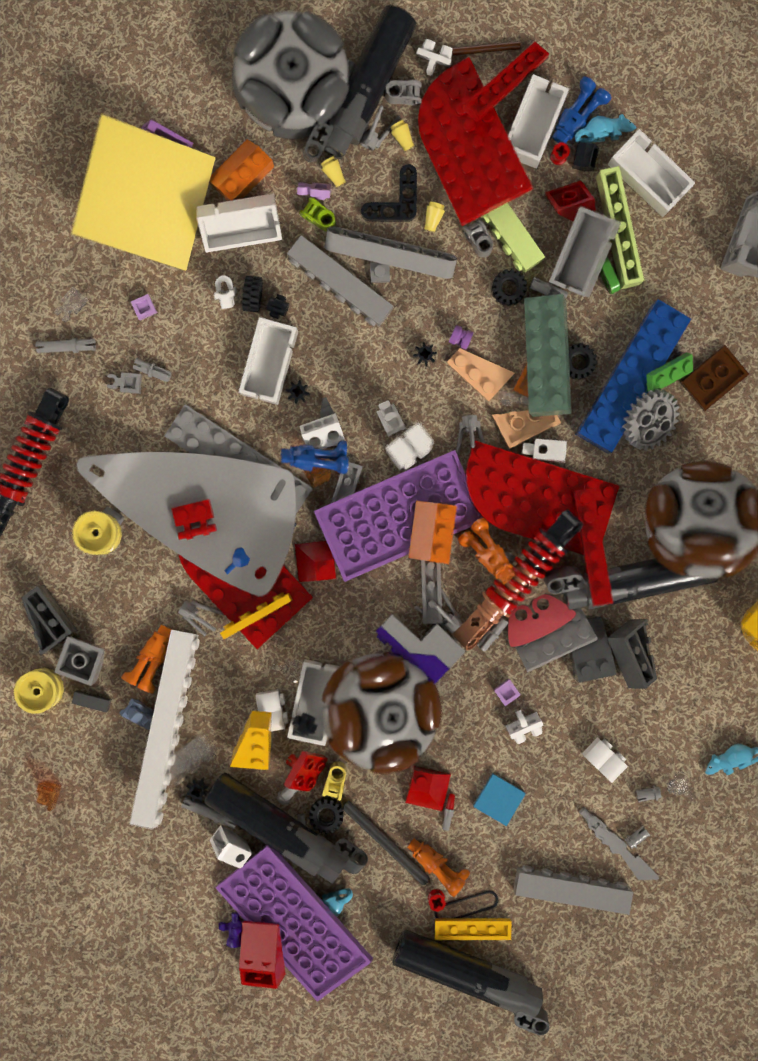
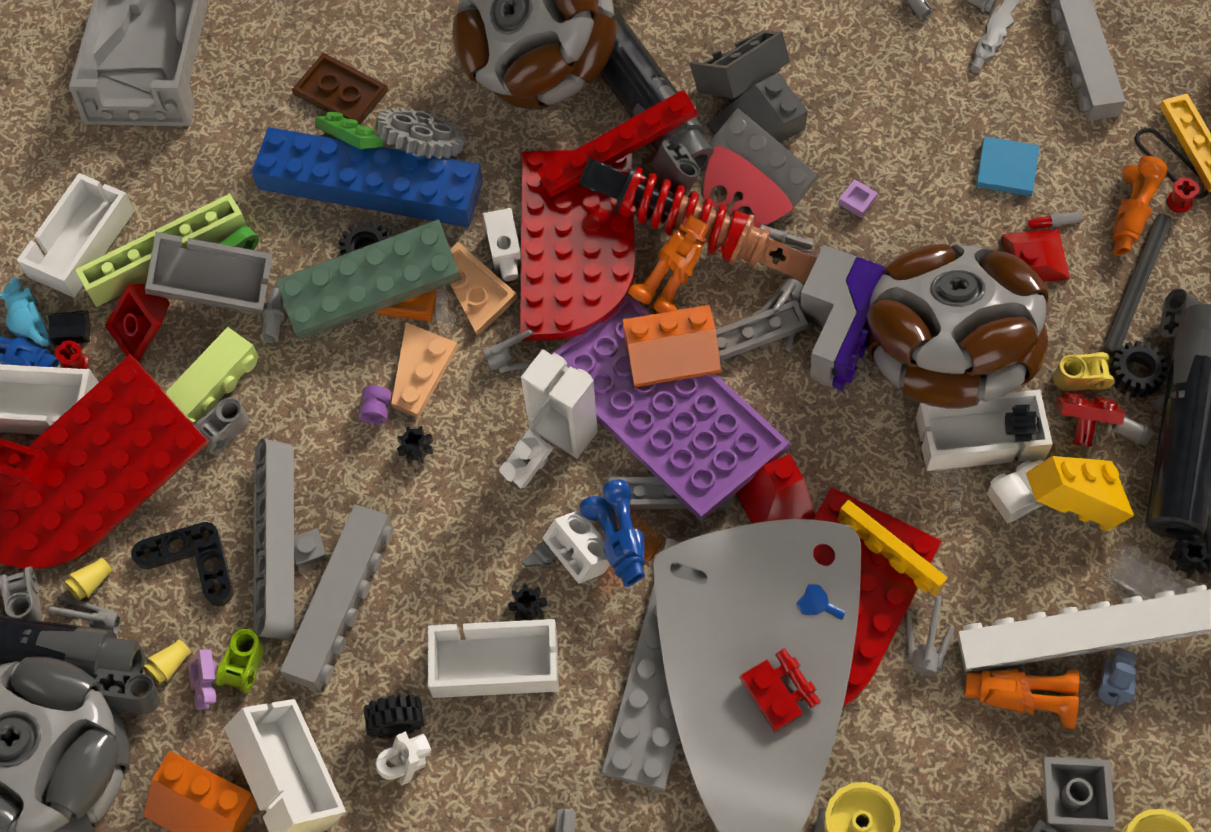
camera: 105 degrees left, 25 degrees down
(91, 701) = (1134, 765): dark grey piece -> none
(277, 306) = (402, 675): black gear -> none
(433, 216) = (202, 497): light yellow cone -> none
(512, 276) = (286, 380): black tyre -> none
(524, 725) = (887, 155): white hips -> none
(604, 759) = (895, 60): white brick -> none

